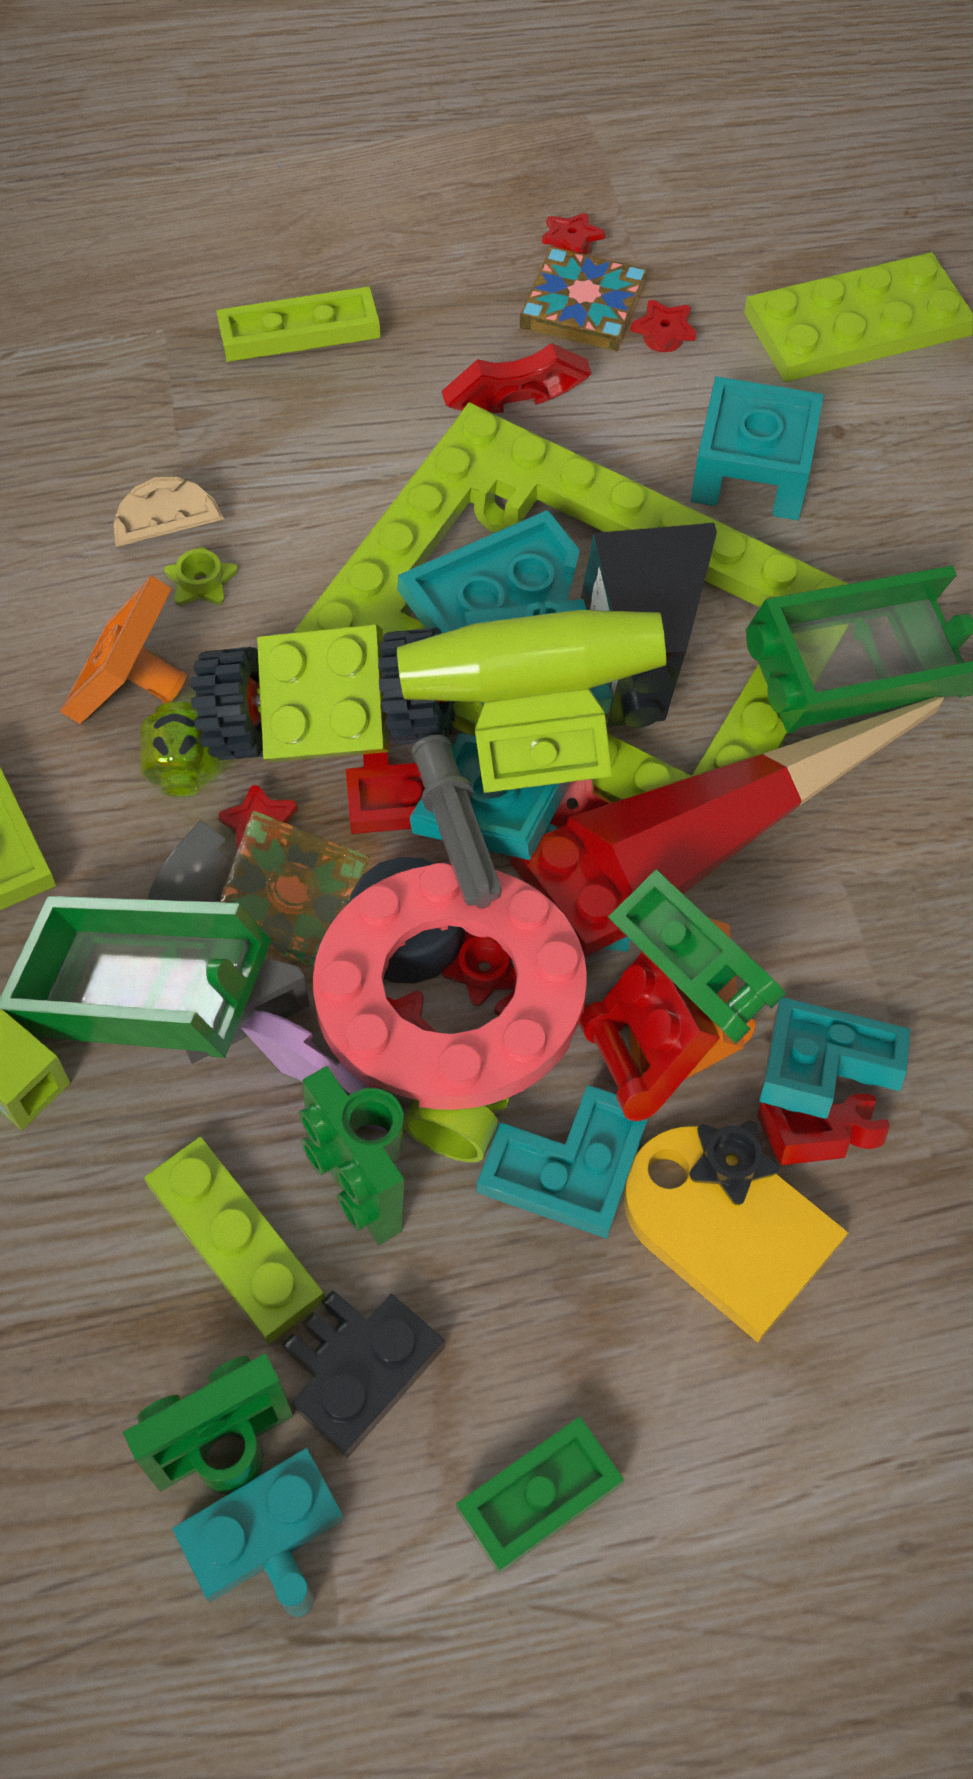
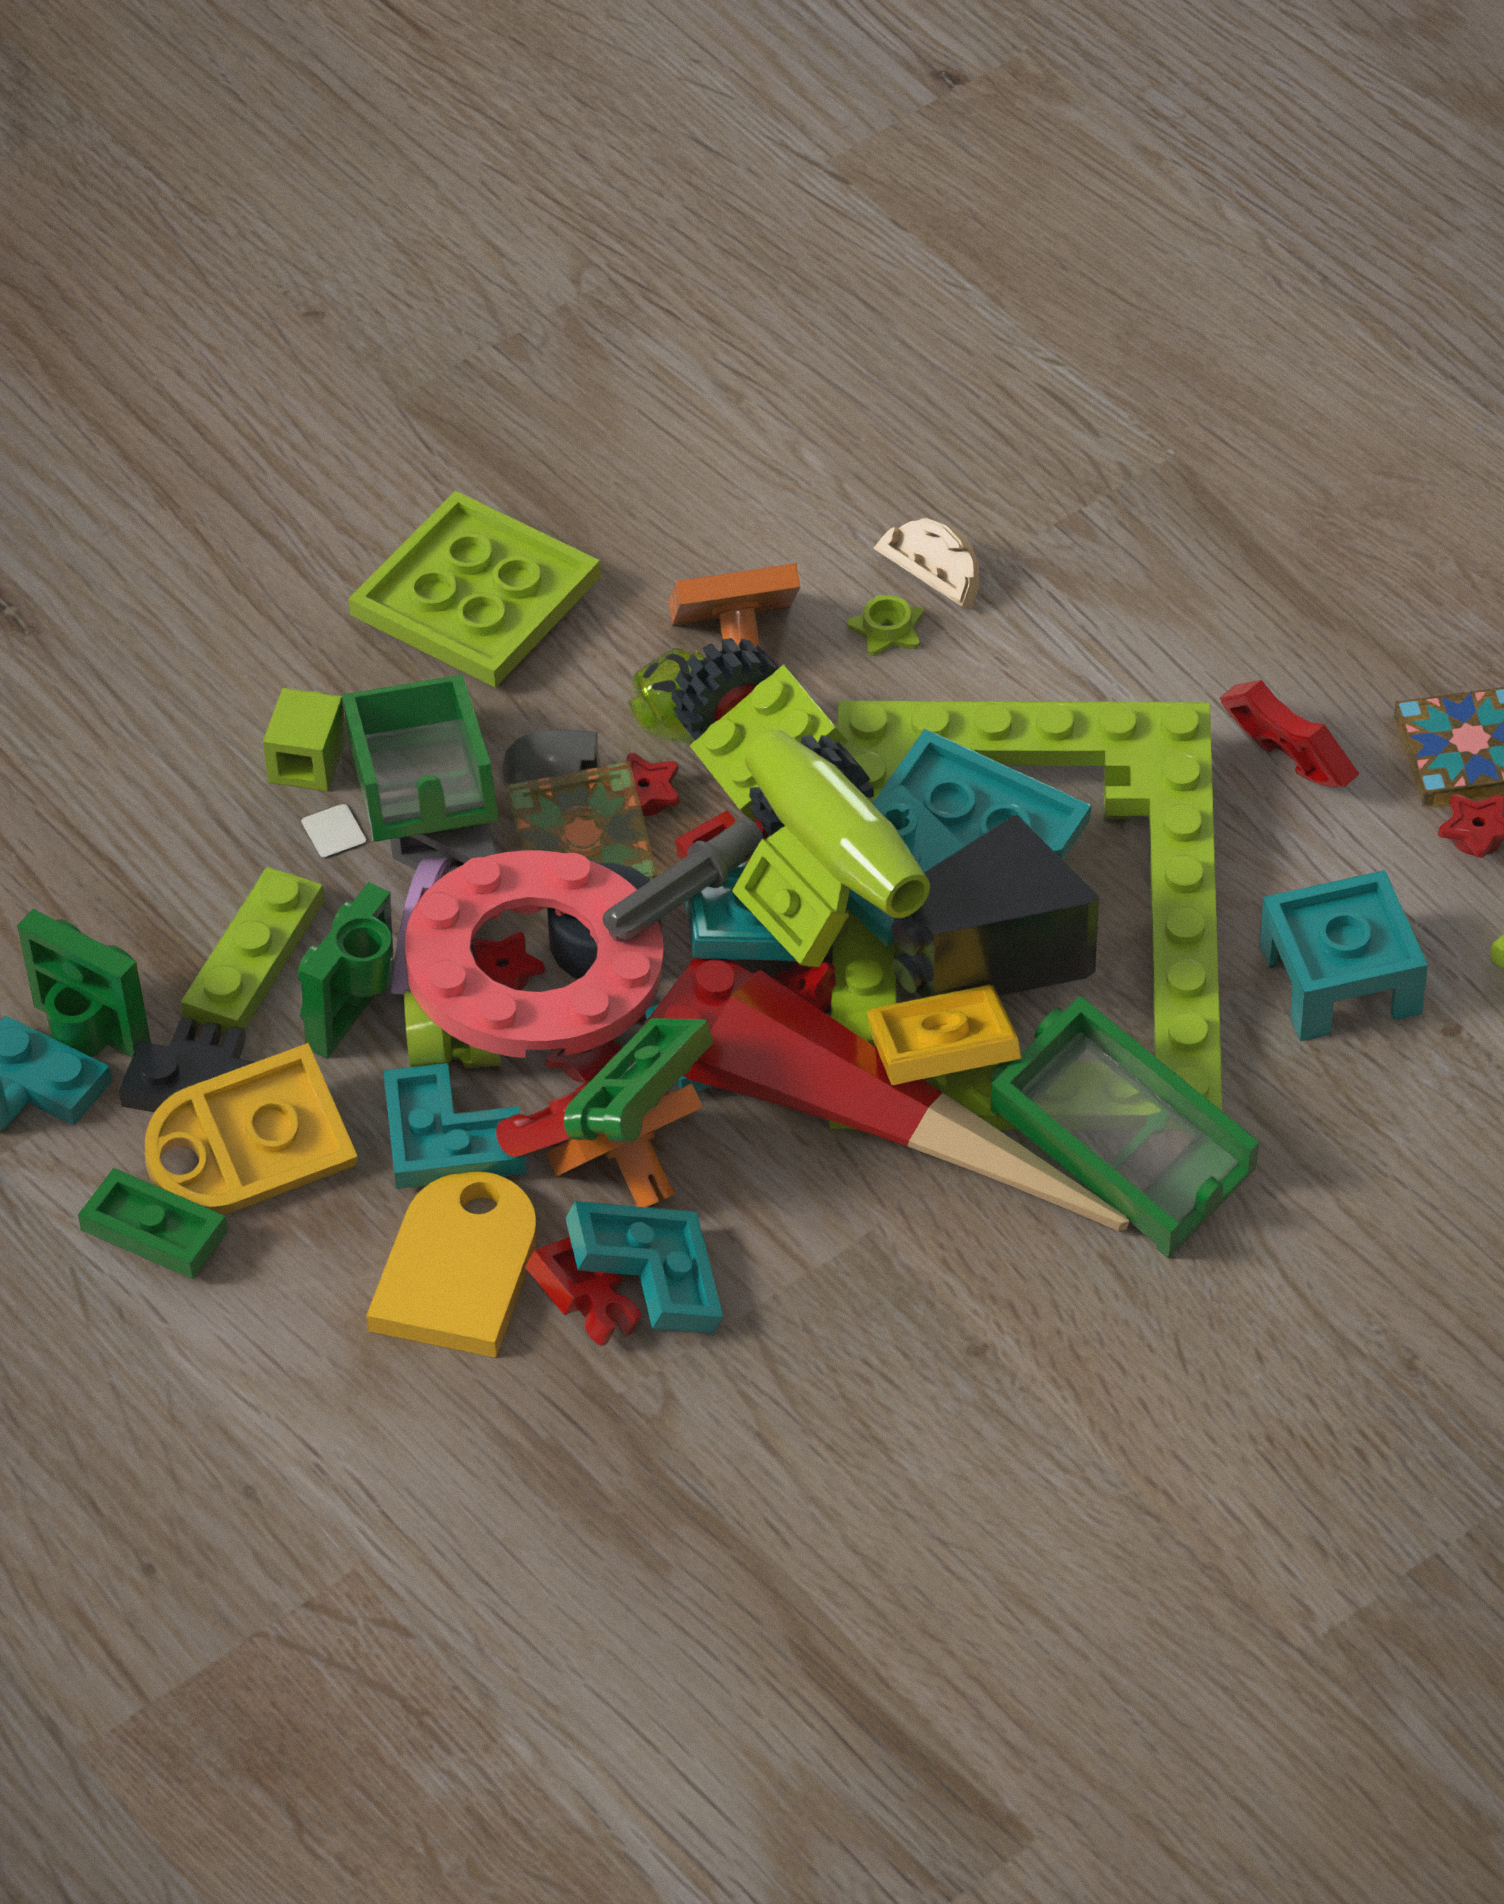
camera: 65 degrees right, 10 degrees down
(124, 1099) = (333, 830): none -> white sticker
(298, 324) = (1245, 542): lime plate -> none
(483, 1345) = (252, 1132): none -> yellow tile
(729, 717) = (943, 1034): none -> yellow plate
(735, 1141) = (511, 1217): black plate -> none

